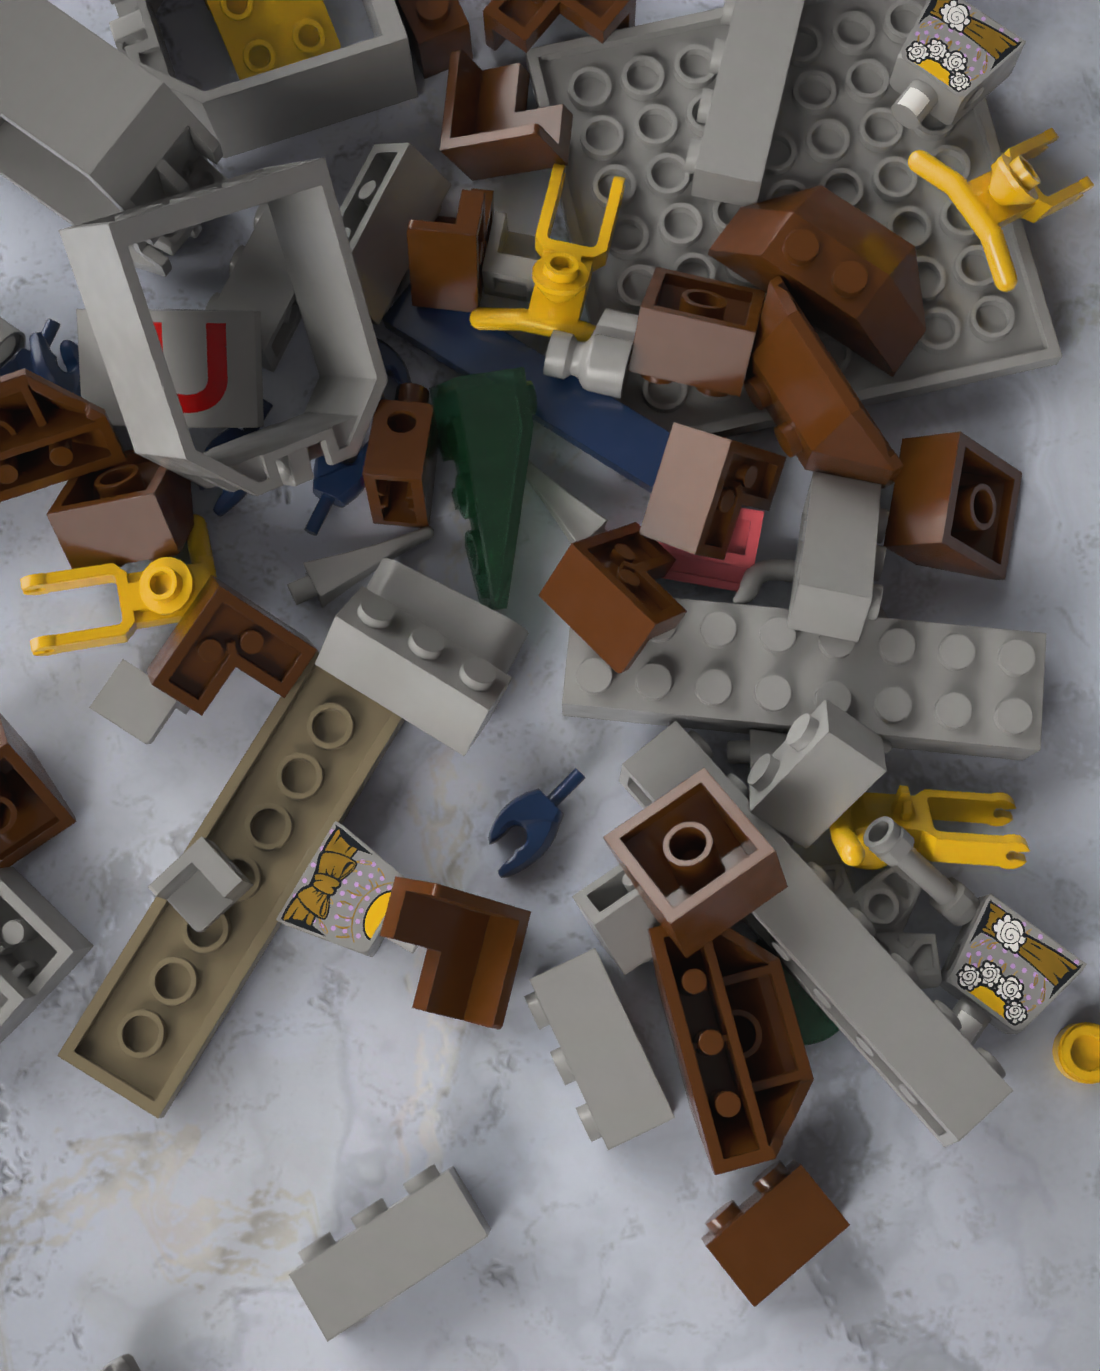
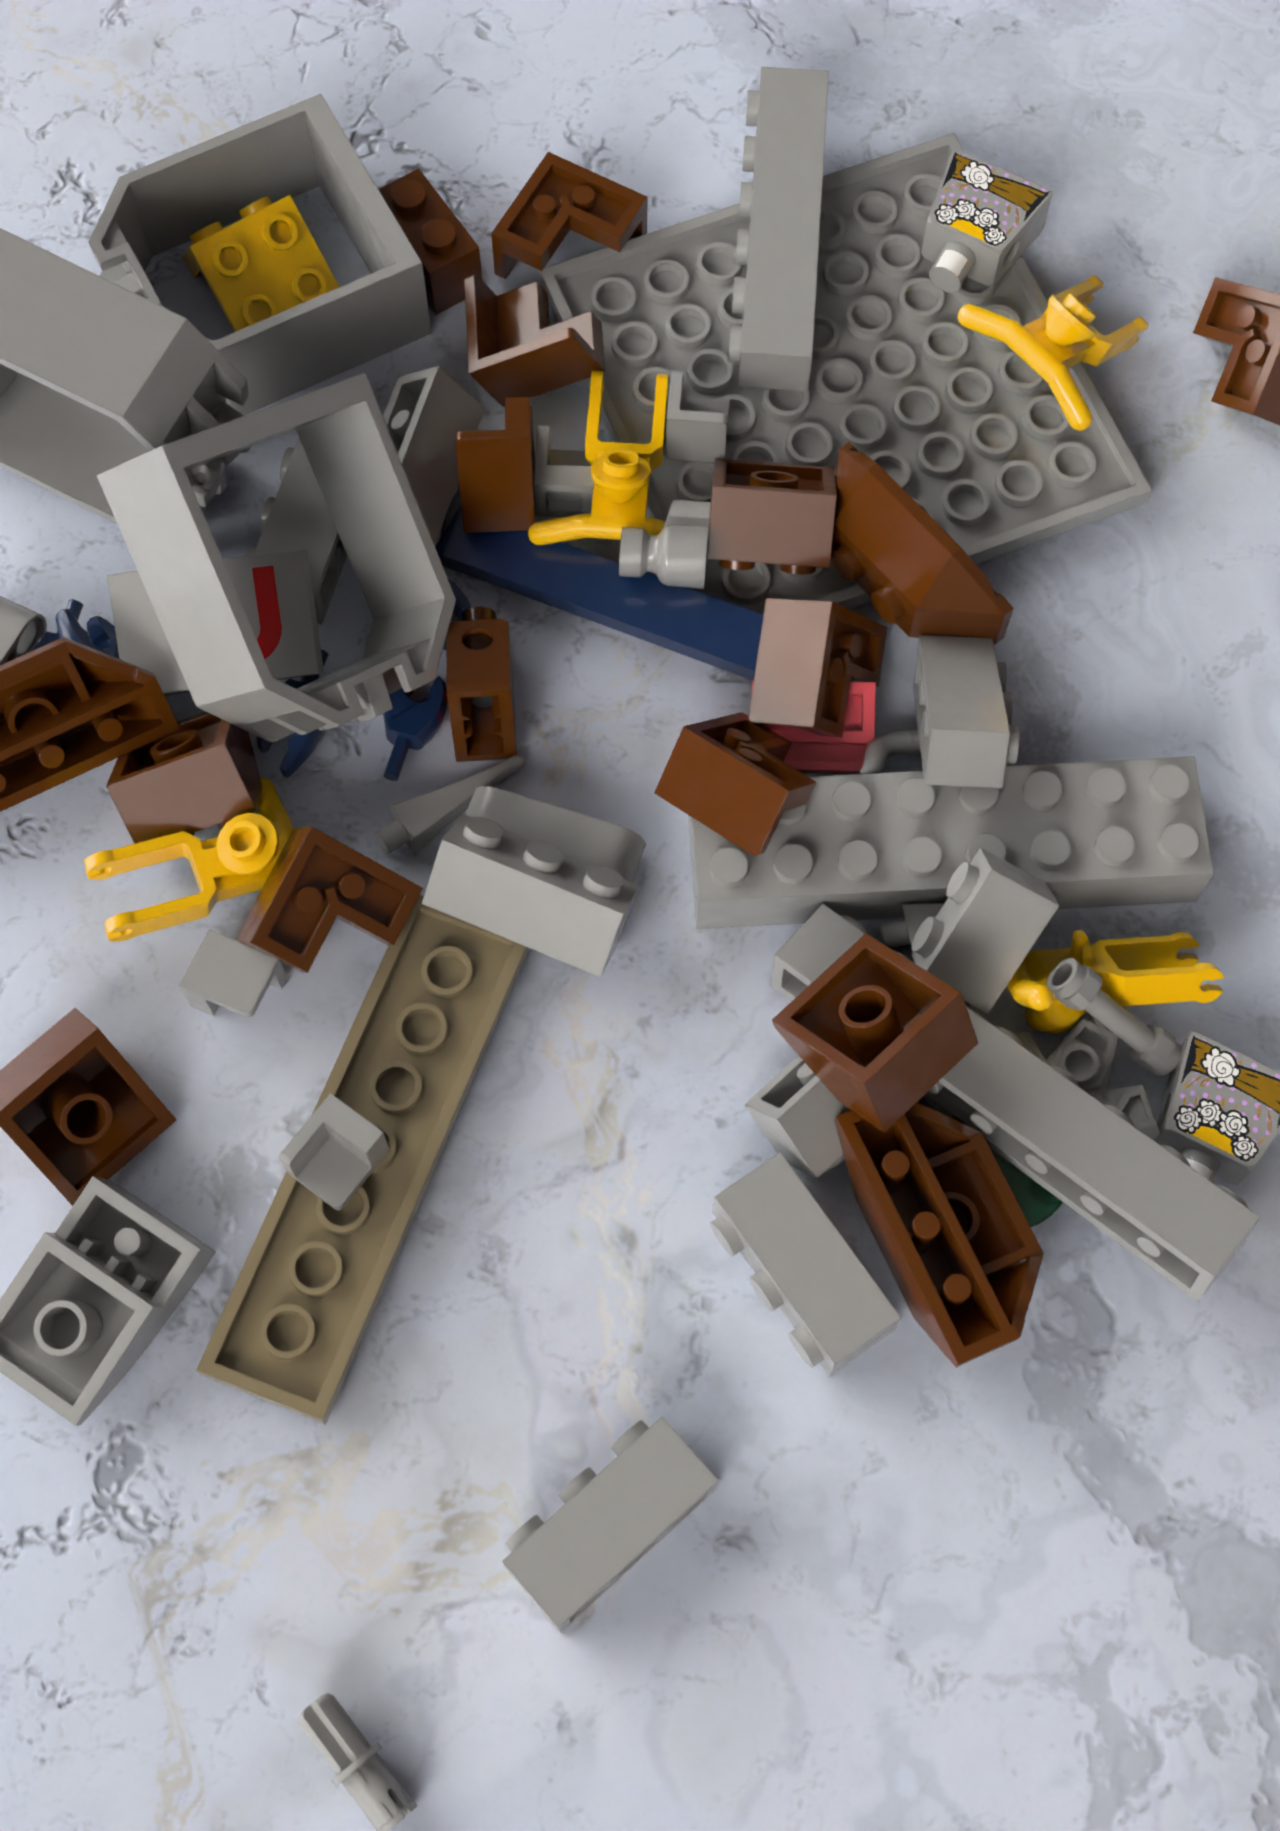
camera: 15 degrees left, 10 degrees down
(343, 894) = (502, 1148): torso -> none
(469, 947) = (641, 1174): reddish brown panel -> none
(488, 435) = (569, 653): clear green wedge -> none
(539, 818) = (691, 1035): dark blue hand -> none
(571, 514) = (658, 712): light grey piece -> none
(641, 231) = (695, 425): none -> light grey panel
(773, 1230) = (1031, 1428): reddish brown brick -> none
(838, 266) = (912, 426): reddish brown wedge -> none
(953, 506) = (1071, 652): reddish brown slope -> none

